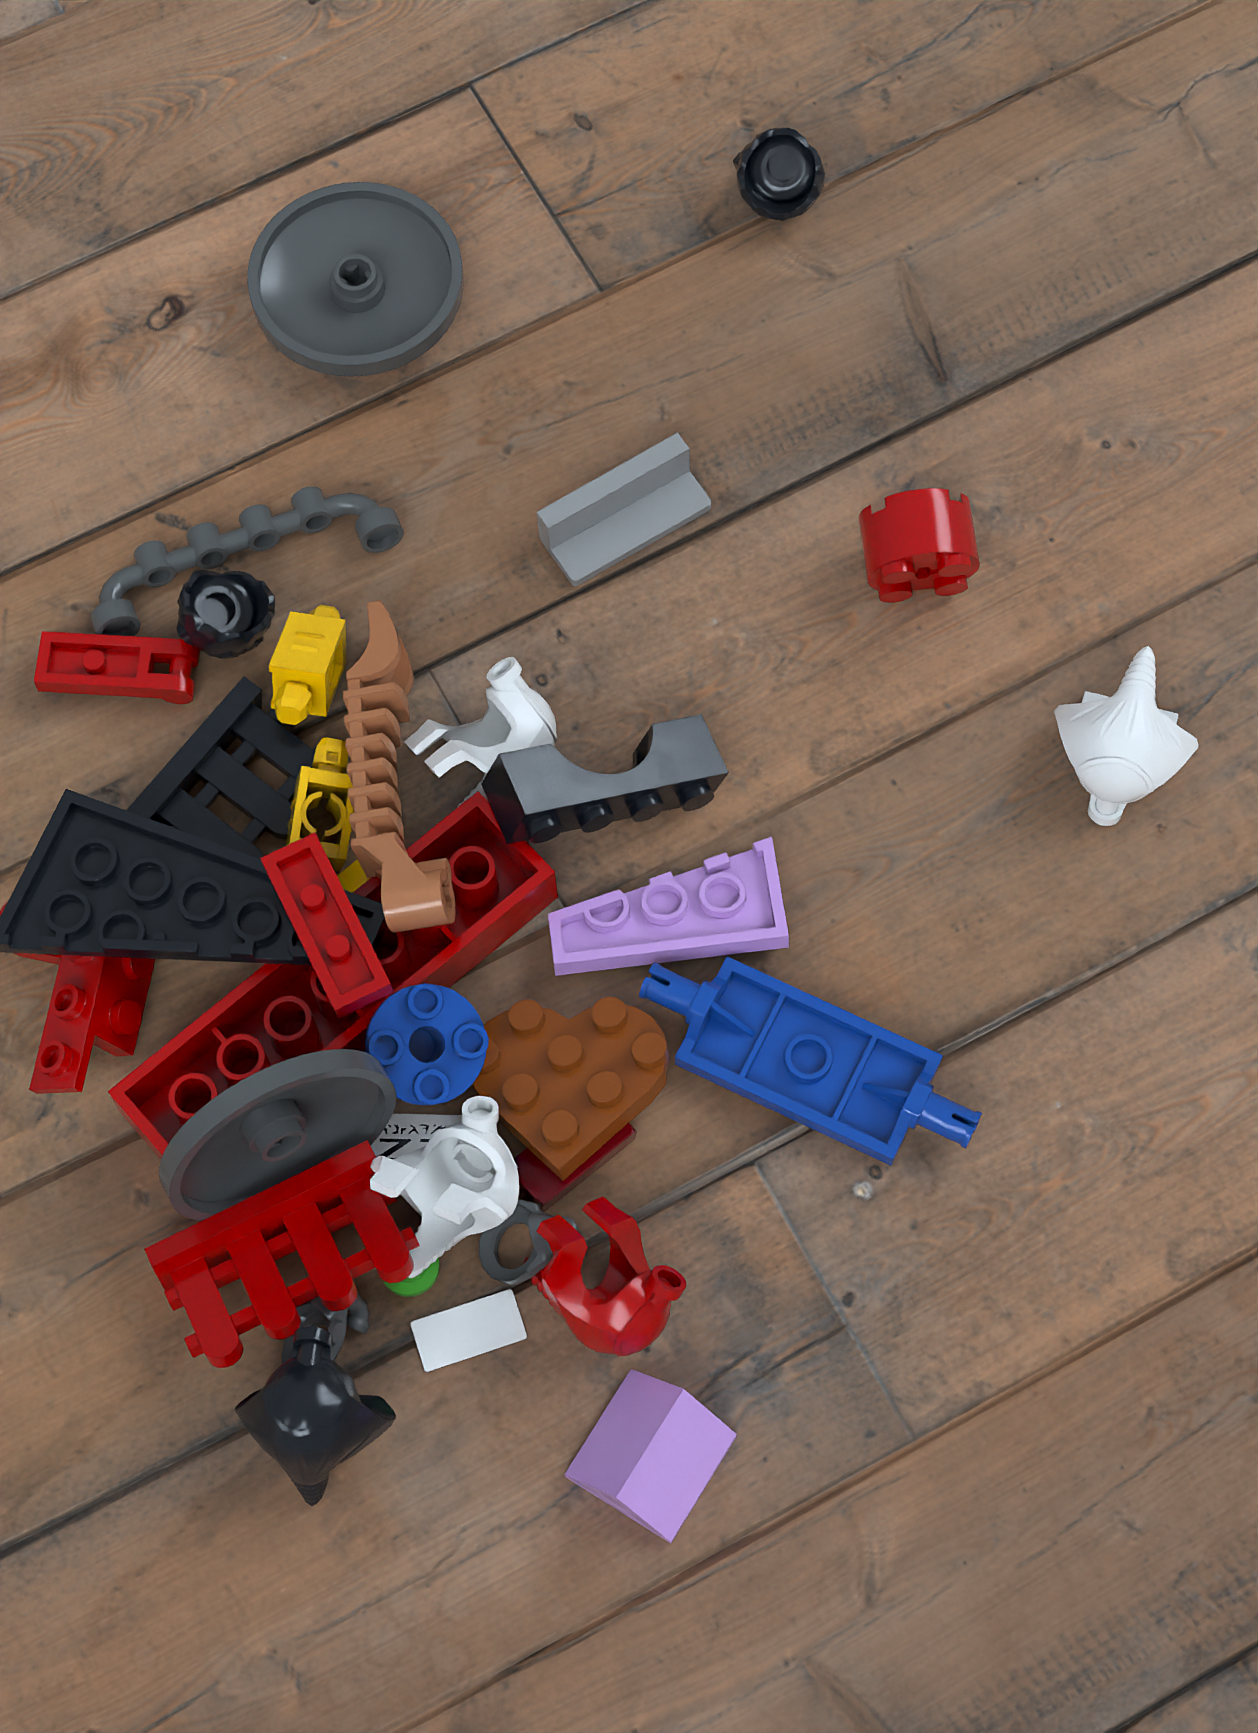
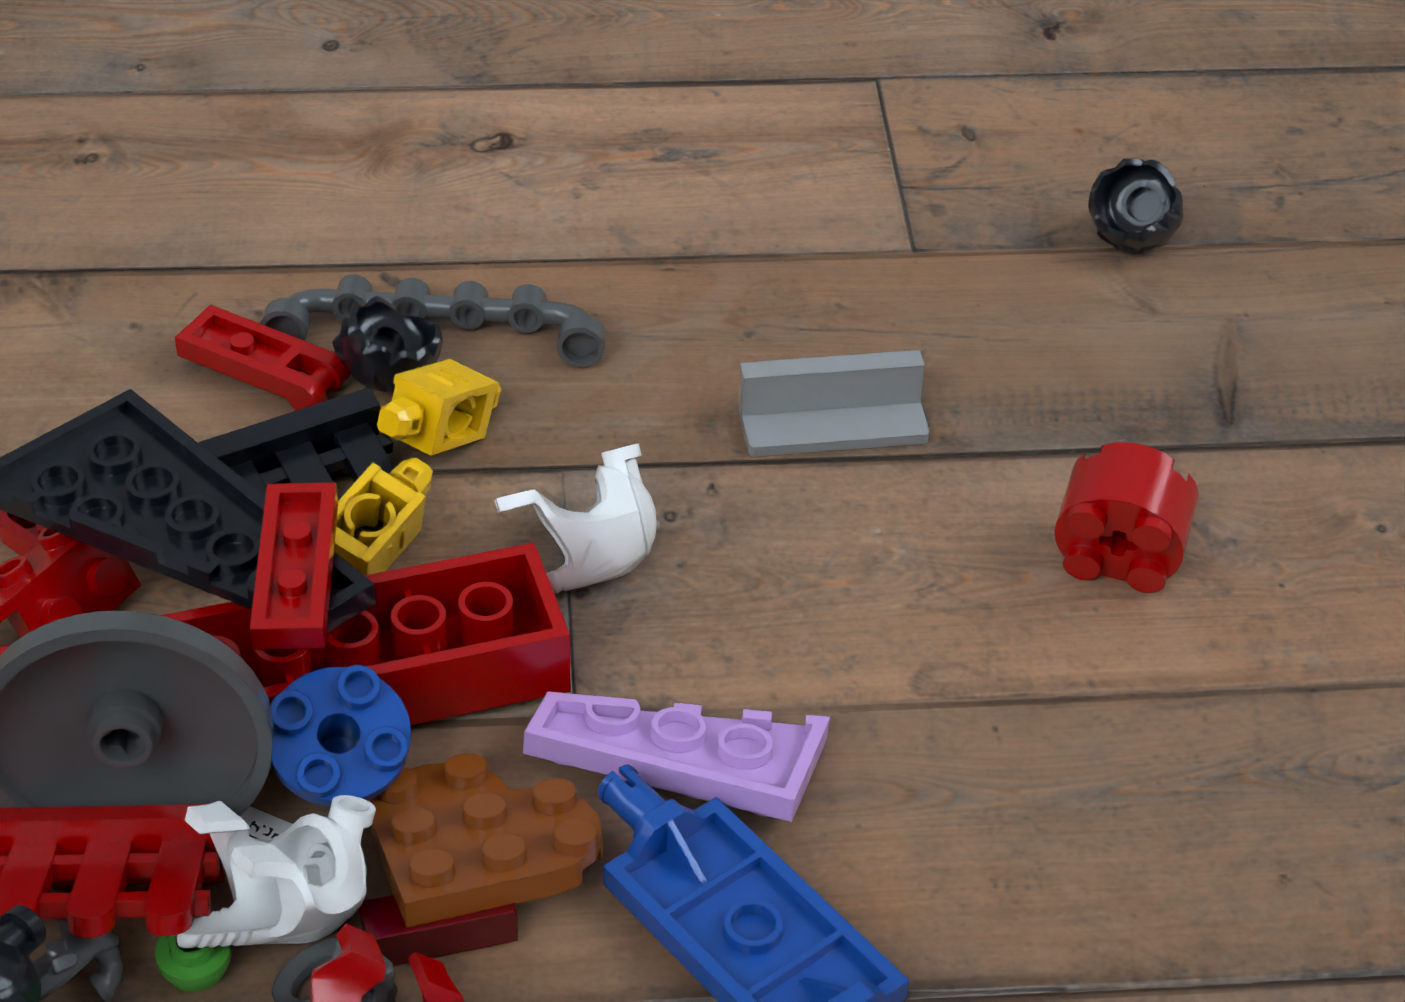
camera: 20 degrees right, 25 degrees down
(355, 279) = (677, 155): dark grey dish -> none
(376, 703) = (486, 449): nougat piece -> none
(544, 794) = (602, 564): arch -> none
(1123, 741) = (1271, 761): white piece -> none

